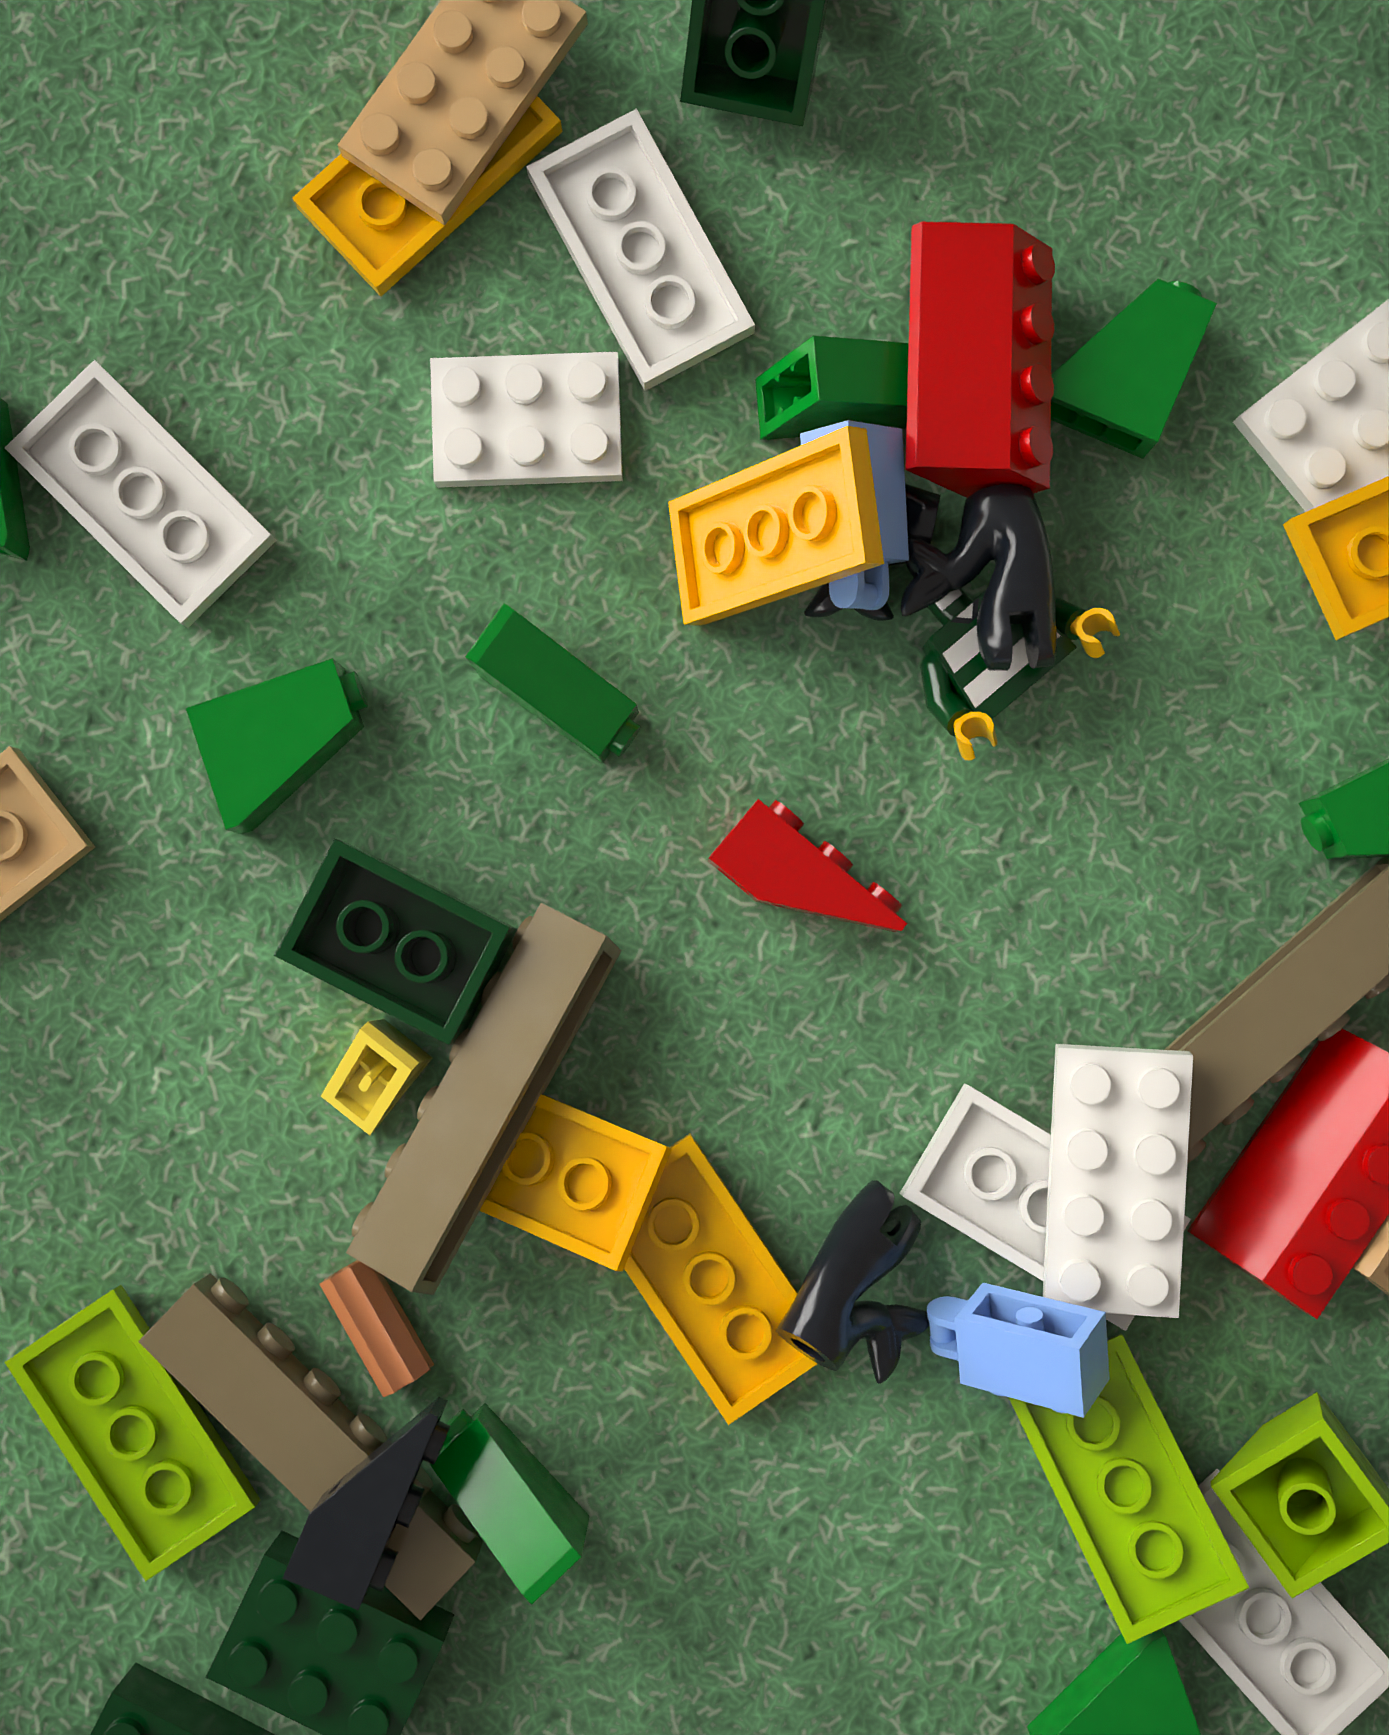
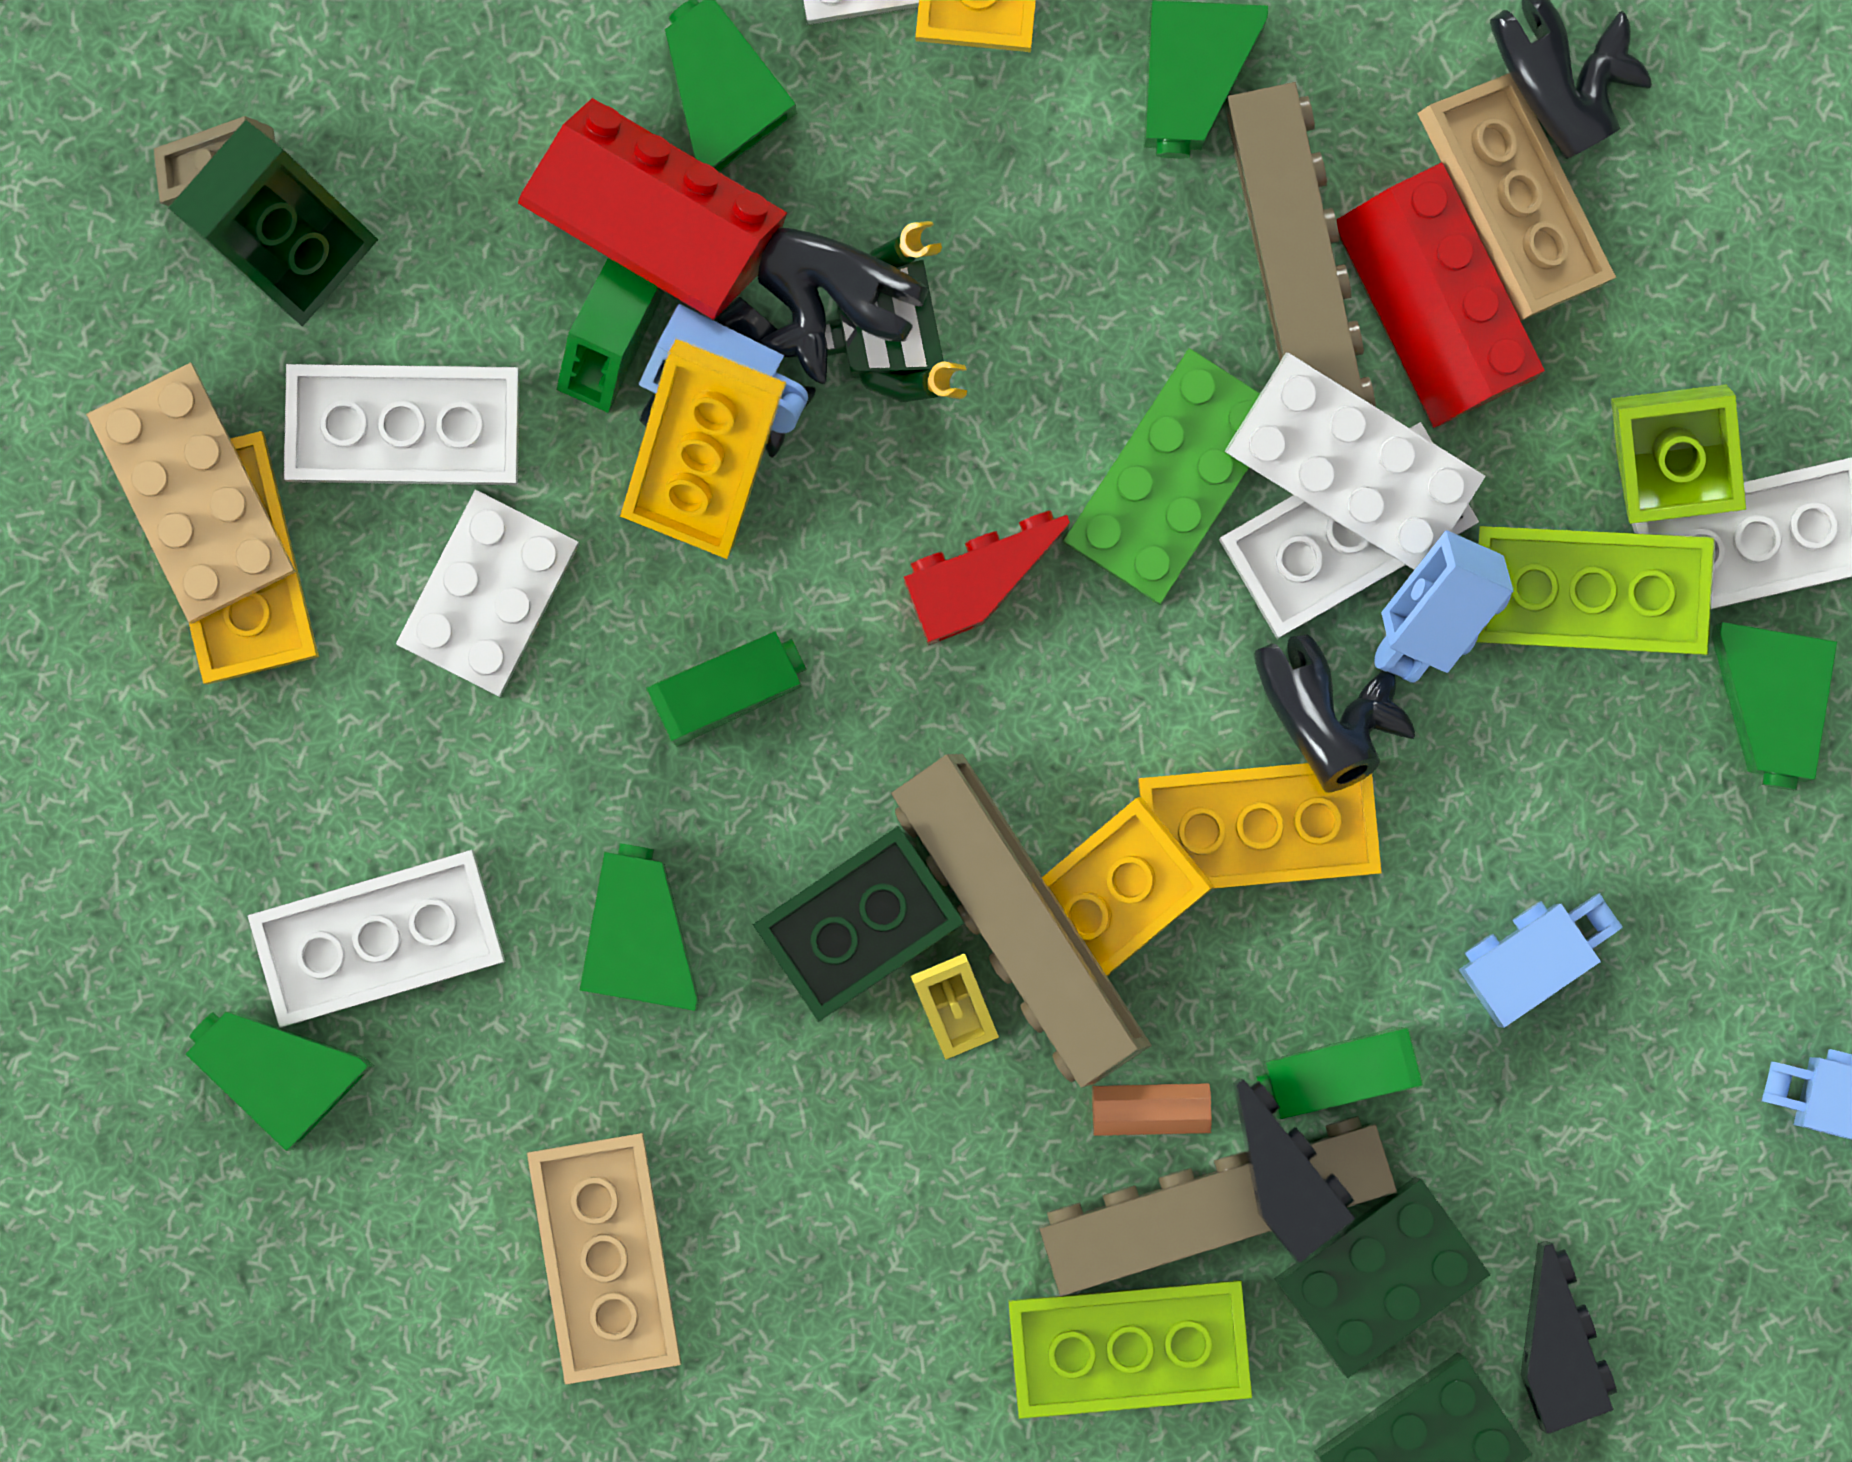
camera: 65 degrees left, 0 degrees up
(730, 1626) = (1536, 957): none -> light blue brick
(995, 1002) = (1167, 480): none -> bright green plate

